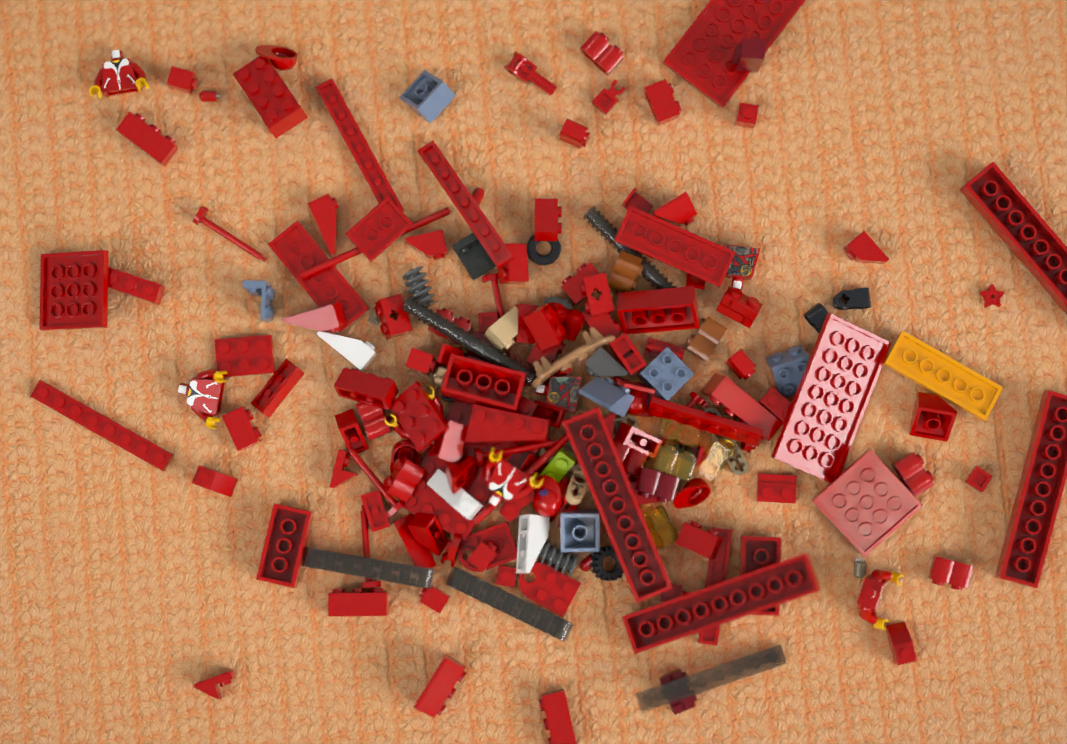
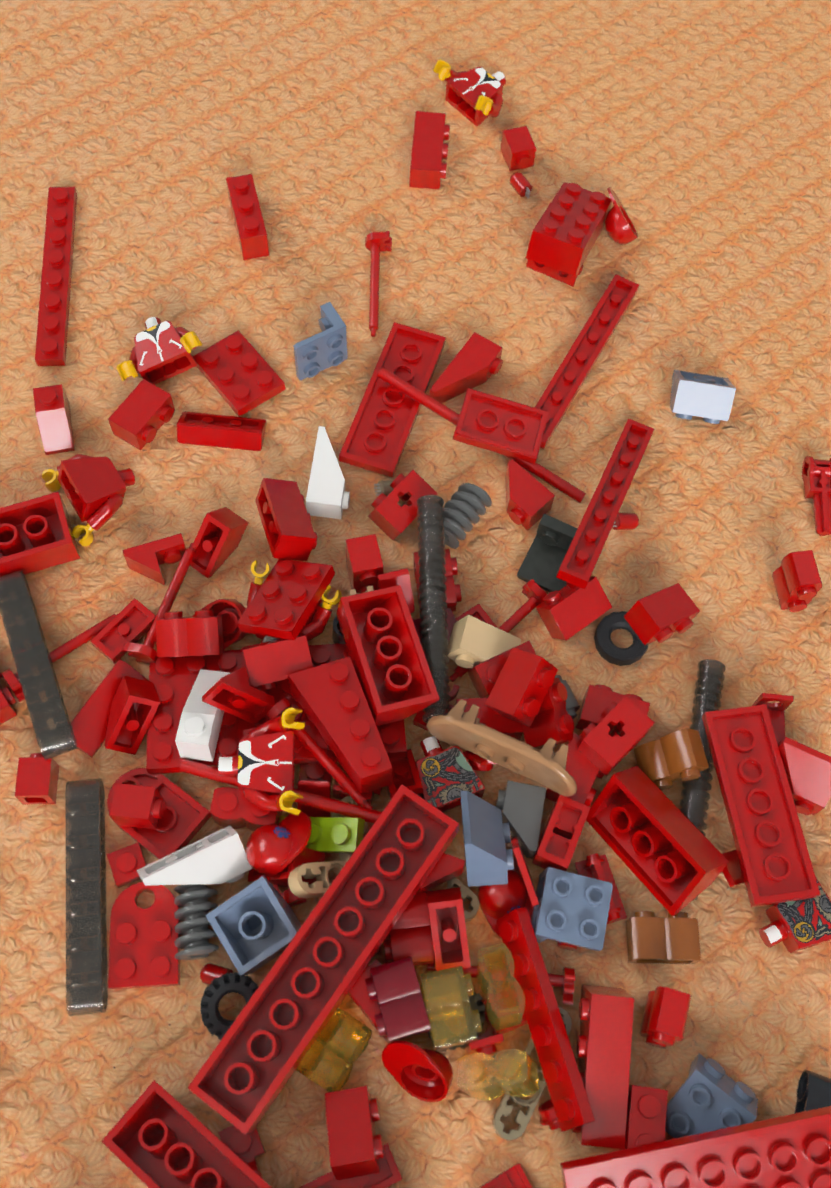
camera: 50 degrees right, 20 degrees down
(74, 290) = (202, 160): red plate -> none
(276, 482) = (92, 488): none -> red torso
(320, 319) = (345, 421): slope -> none
(373, 420) = (238, 560): red brick -> none
(452, 548) = (123, 760): red plate -> none
(739, 306) = (744, 958): red brick -> none

